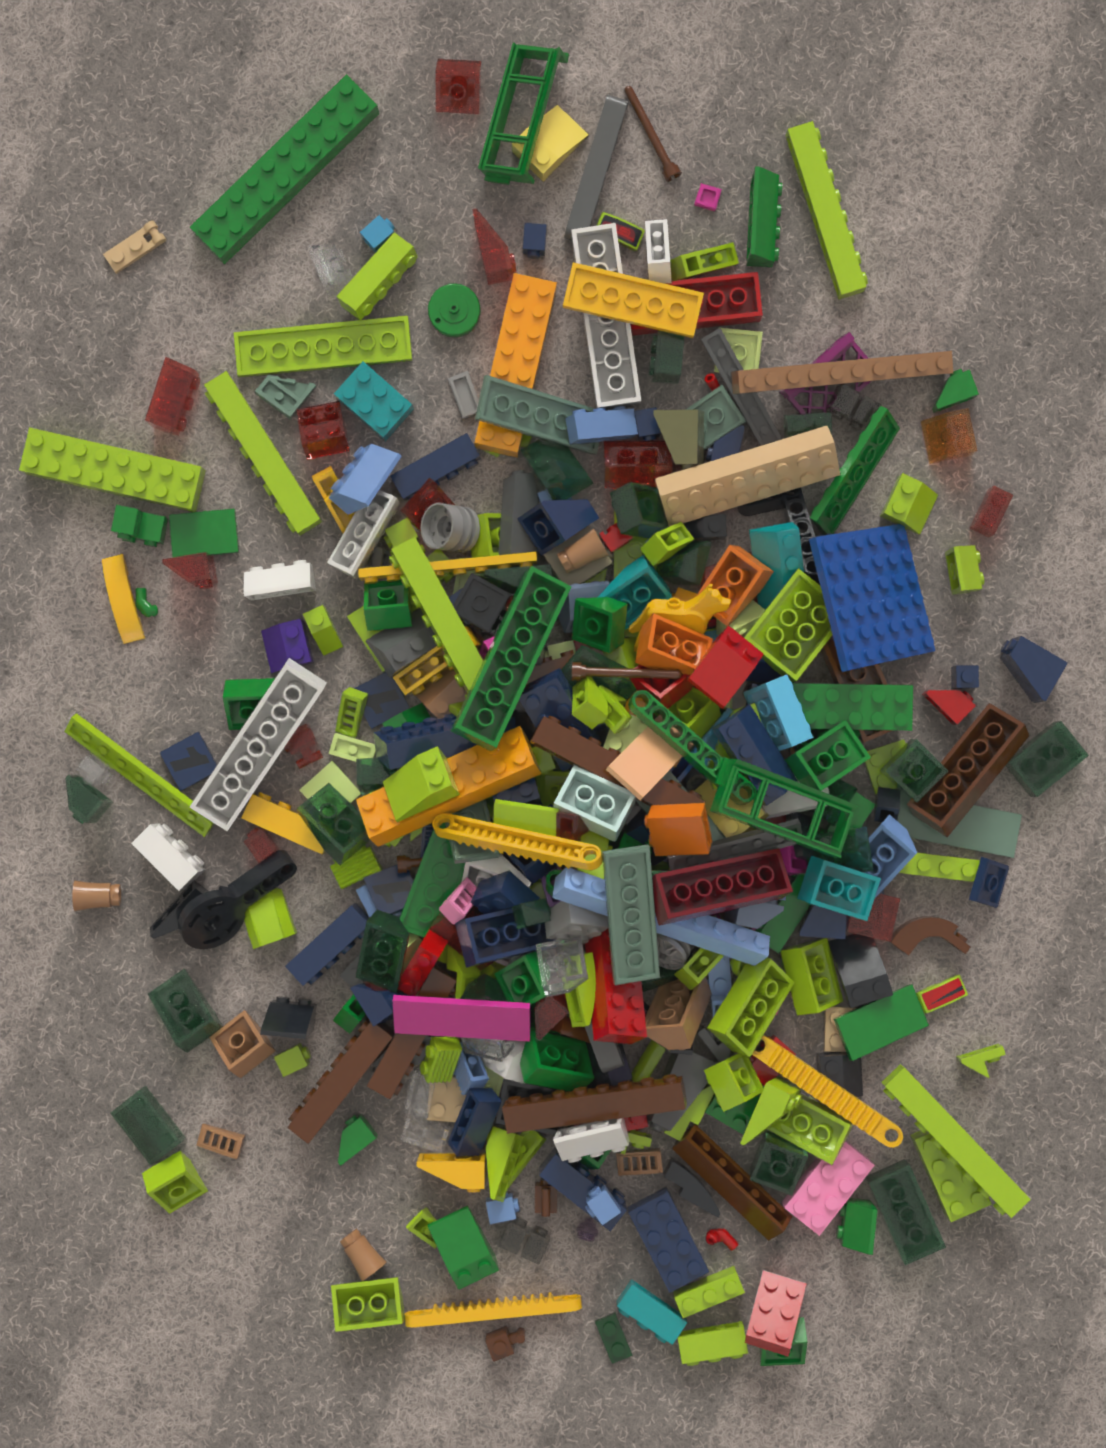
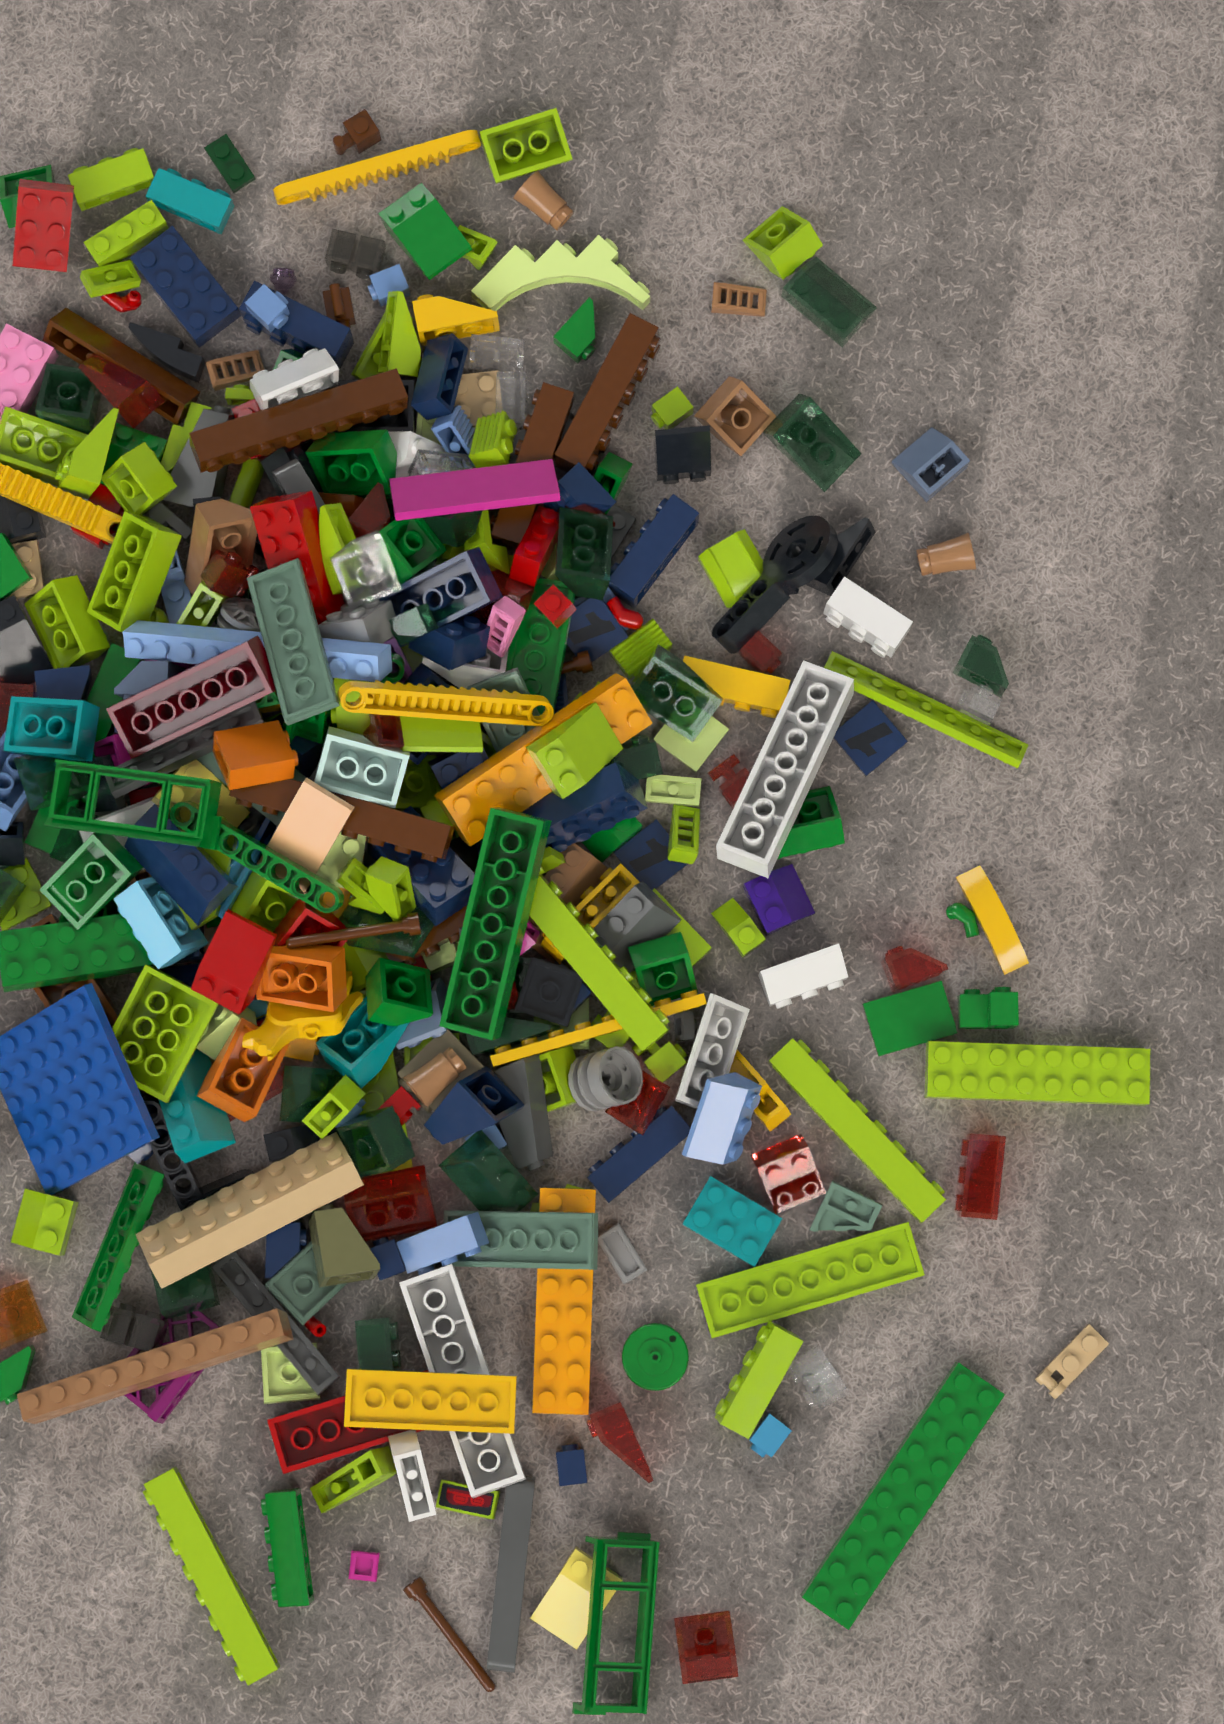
camera: 170 degrees right, 5 degrees down
(92, 974) = (931, 463): none -> sand blue slope
(331, 1191) = (593, 266): none -> yellowish green arch
(362, 894) = (624, 616): none -> red arm
(415, 910) = (555, 606): none -> red brick
(675, 987) = (227, 574): none -> clear red brick
(728, 1258) = (110, 278): none -> lime plate
(733, 1161) = (123, 389): none -> clear red slope

